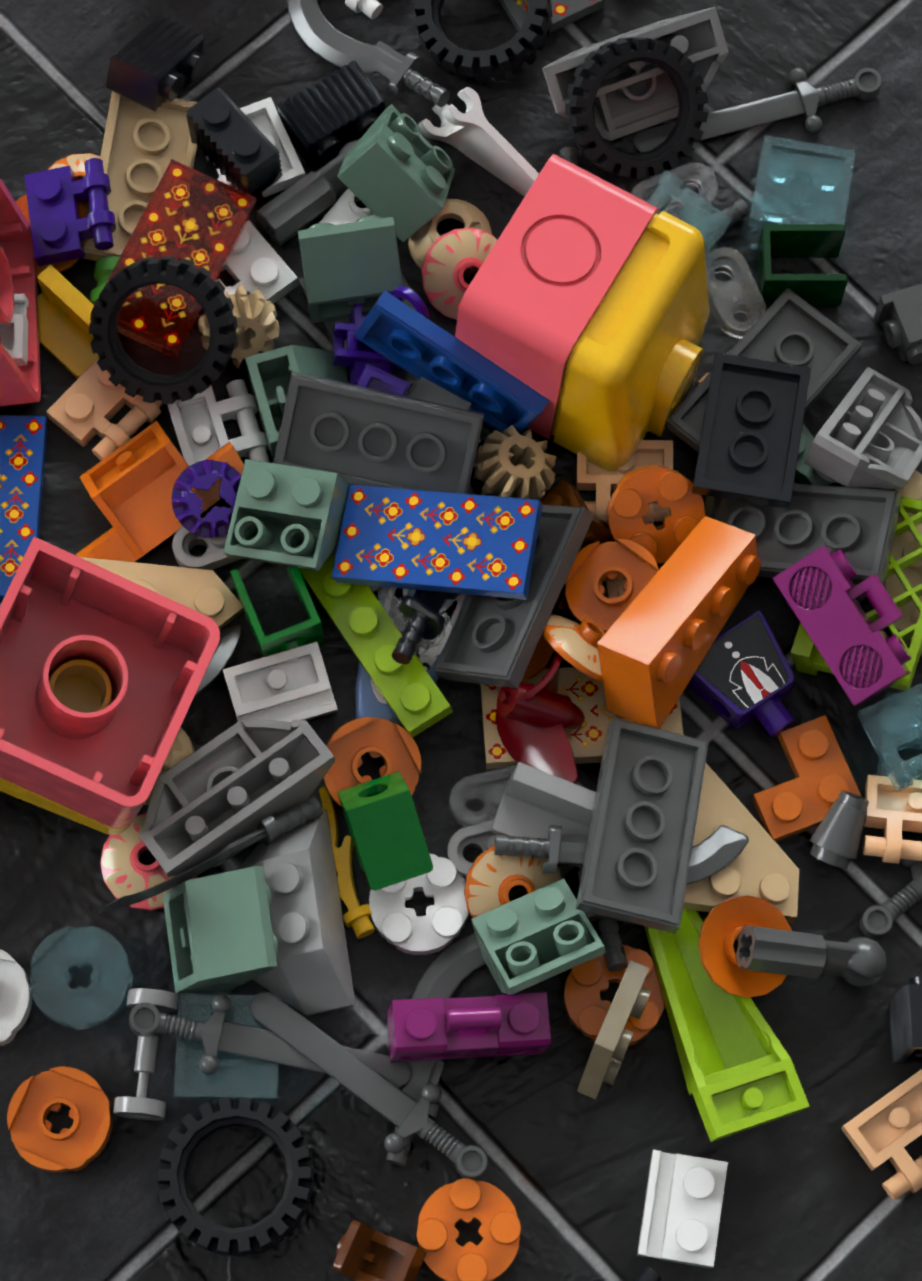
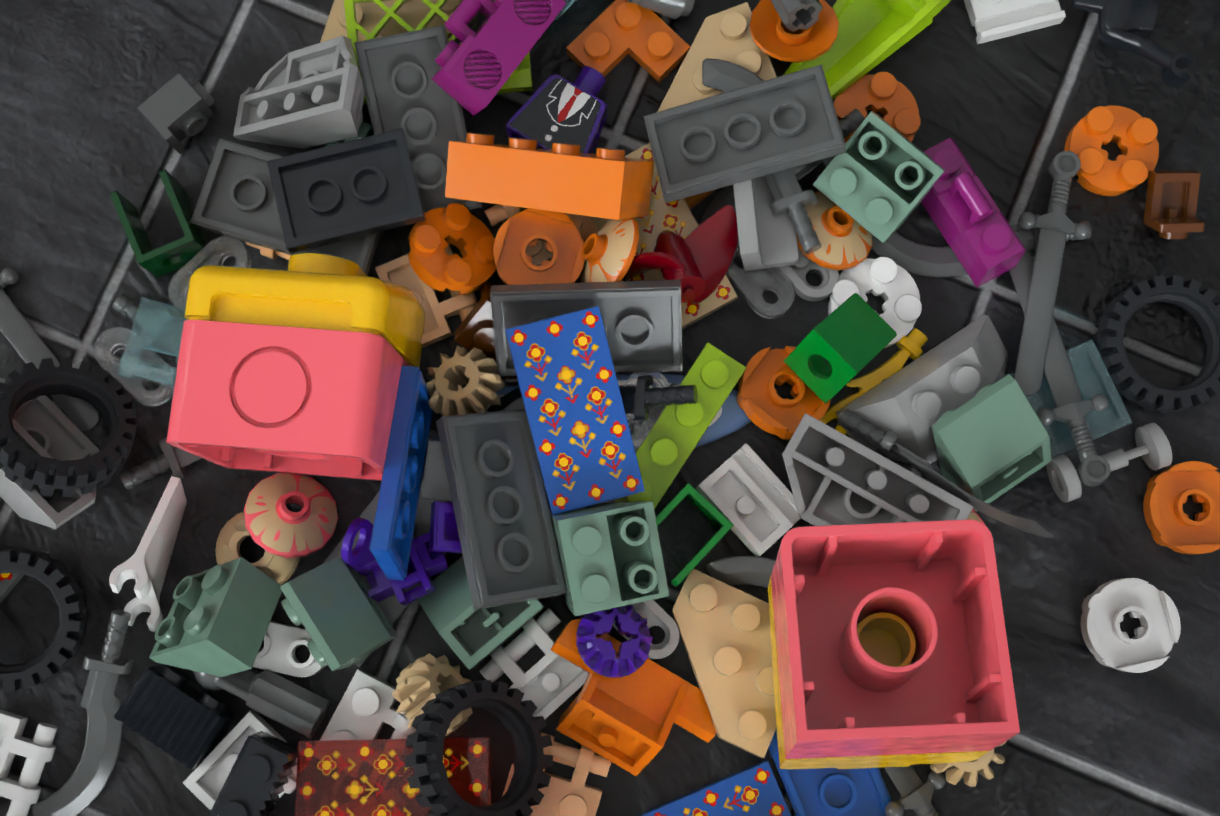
camera: 115 degrees left, 10 degrees up
(80, 1006) = (1094, 536): clear light blue plate -> none
(613, 1037) = (932, 91): dark tan plate -> none
(801, 183) = (79, 257): clear light blue plate -> none

